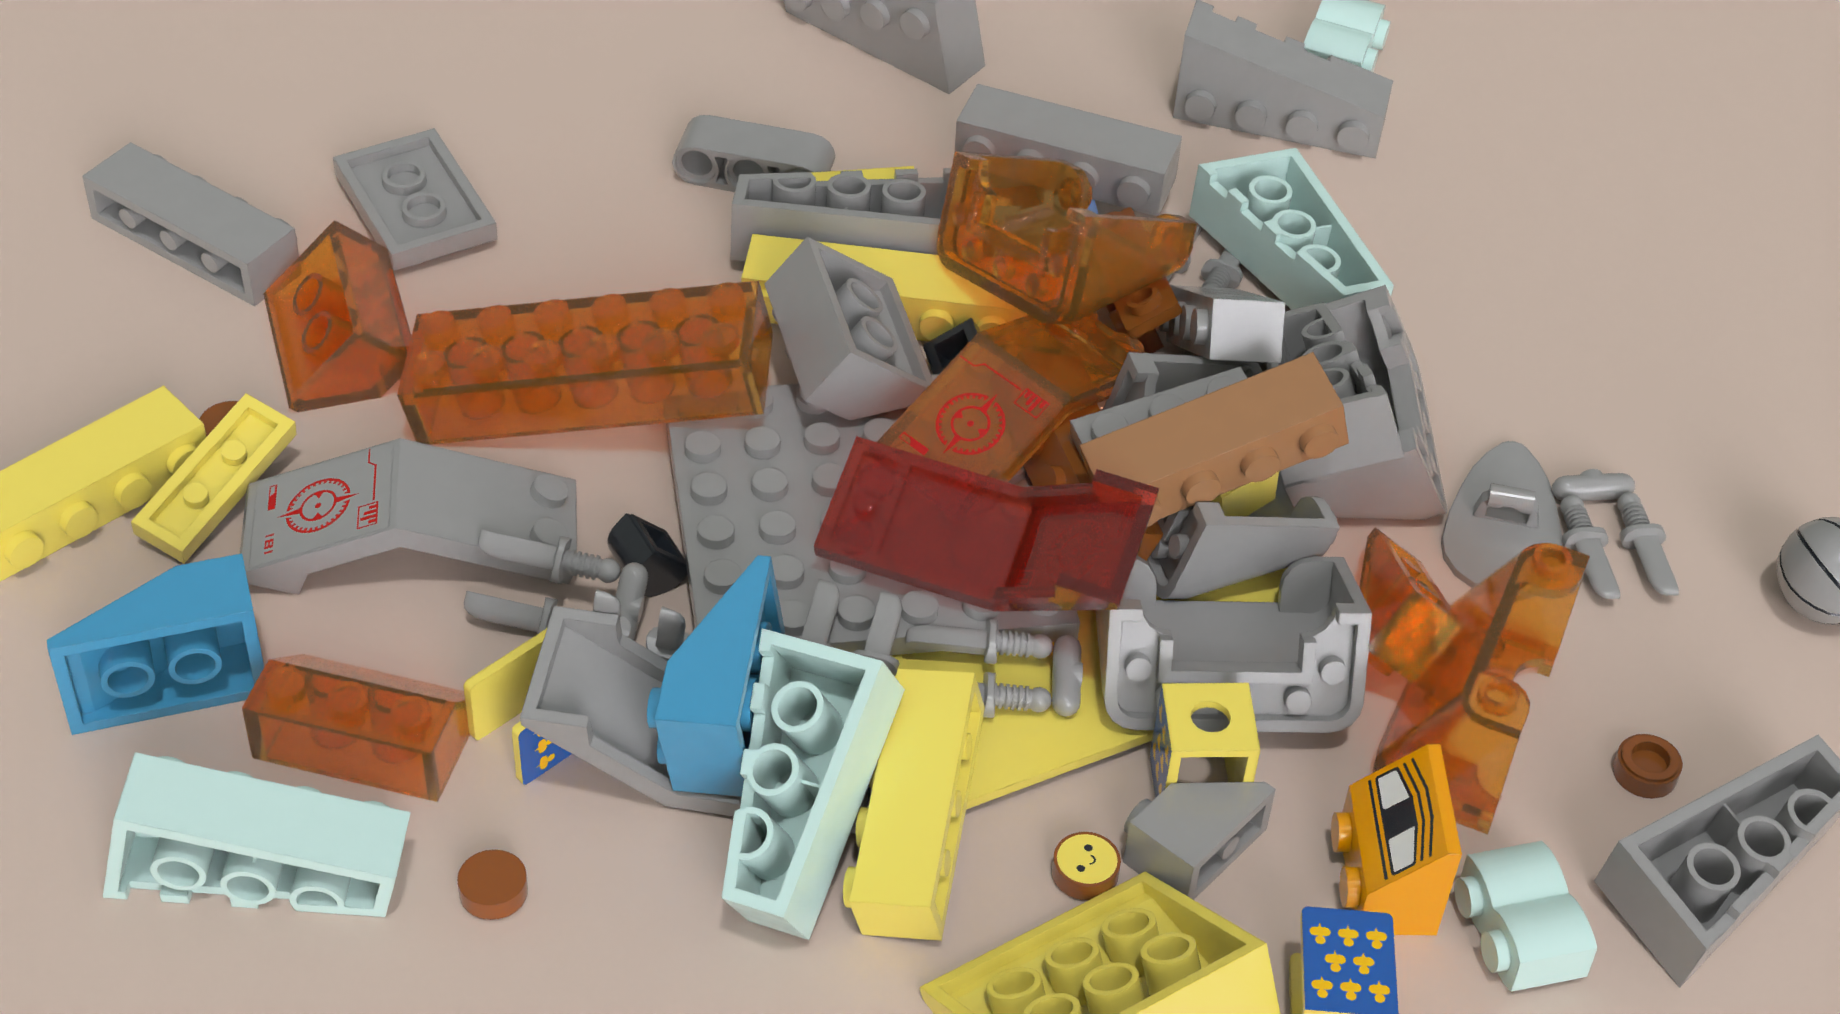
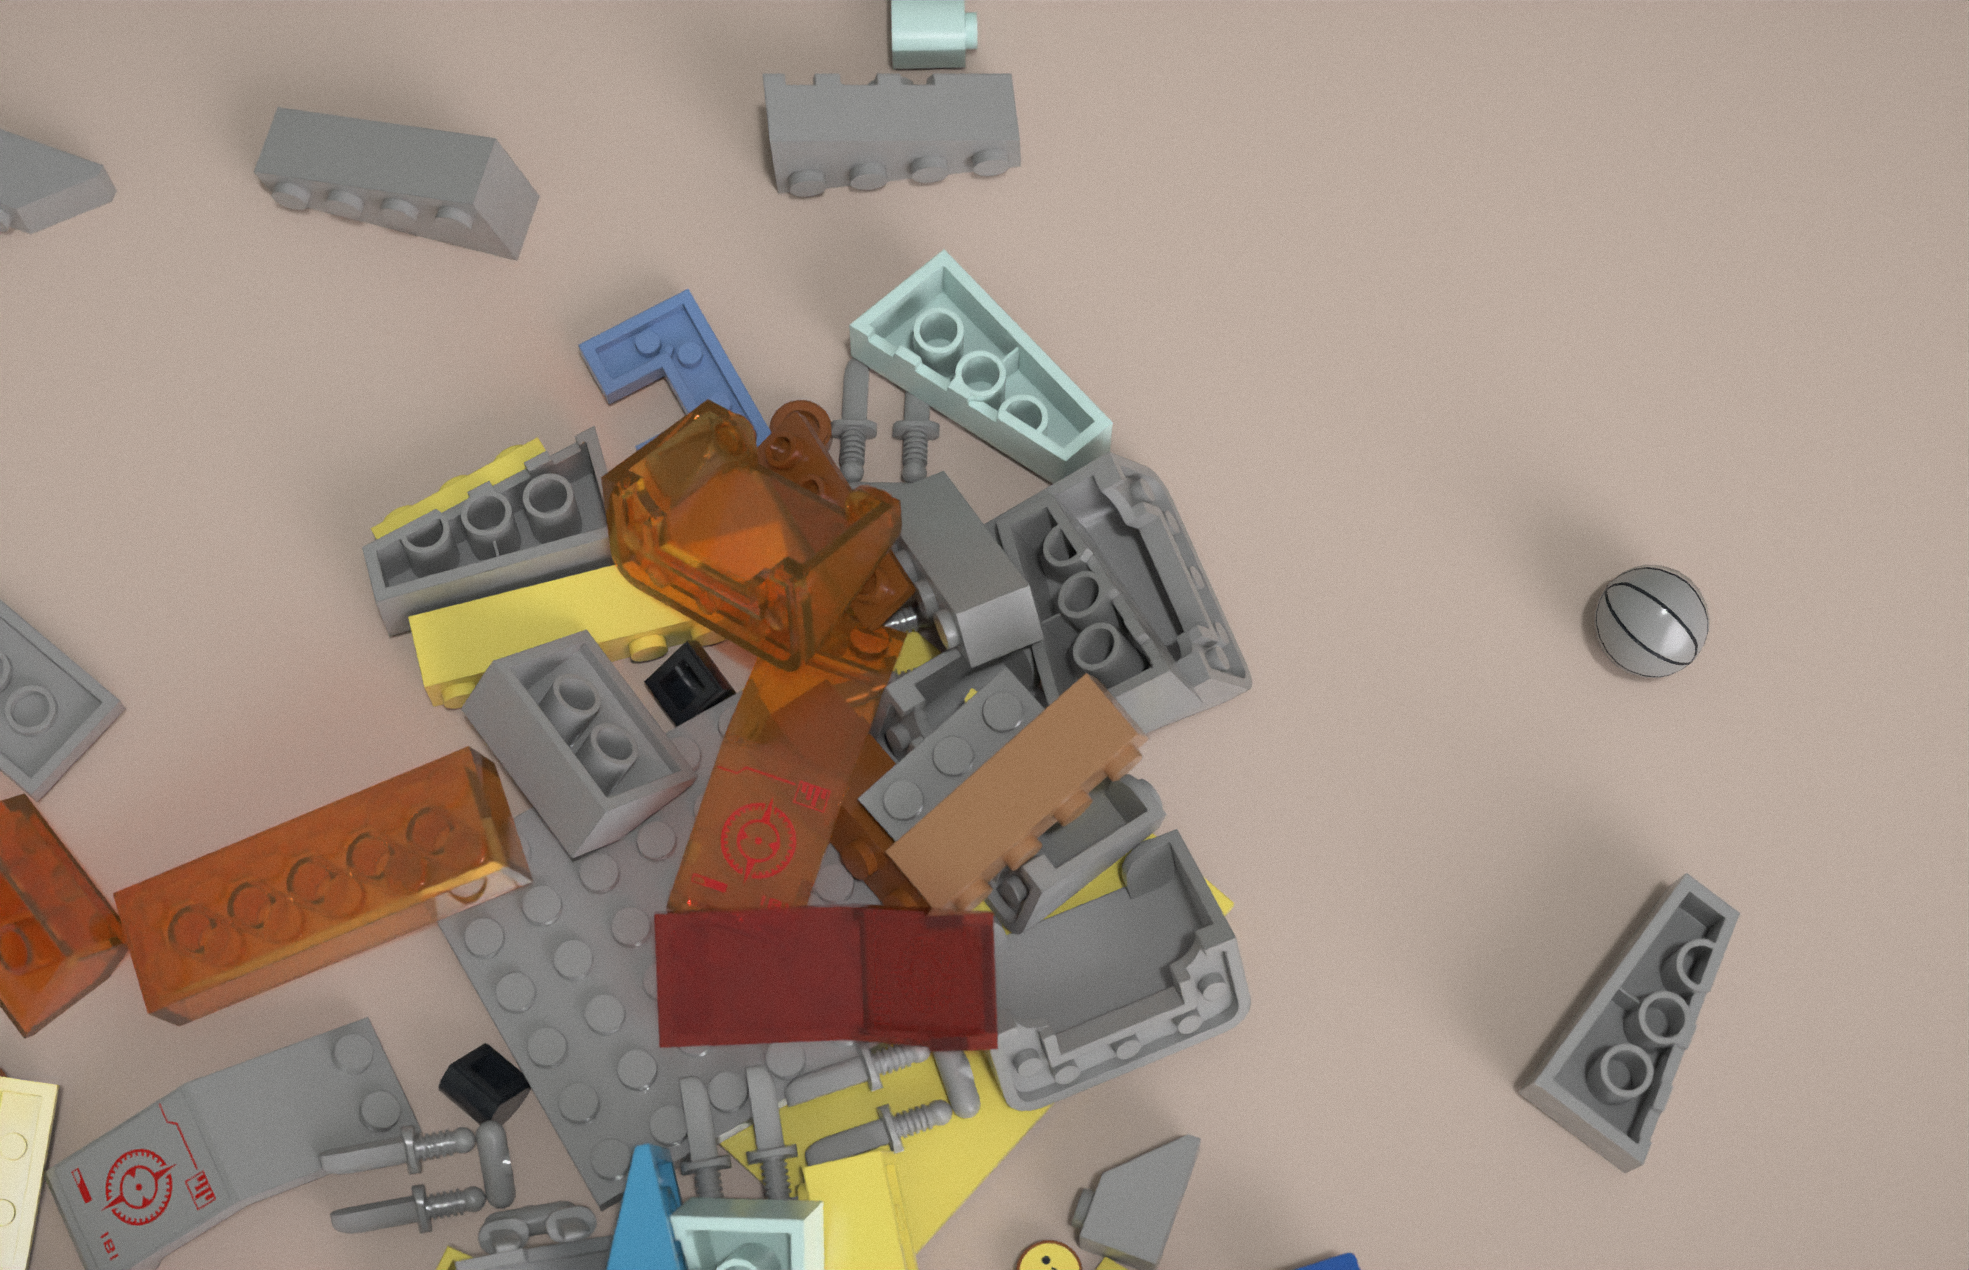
camera: 15 degrees left, 25 degrees up
(722, 148) = (350, 476): light grey beam -> none
(1121, 159) = (694, 346): light grey brick -> none
(1178, 737) = (1098, 1139): light yellow piece -> none
(1400, 842) = (1330, 1152): light orange slope -> none
(1407, 609) = (1247, 847): clear orange slope -> none
(1469, 691) = (1326, 998): clear orange windscreen -> none
(1499, 513) = (1312, 664): light grey shield -> none
(1525, 916) = (1467, 1169): light aqua brick -> none
(1590, 540) = (1399, 659): light grey piece -> none
(1647, 766) = (1532, 927): dark orange tile -> none

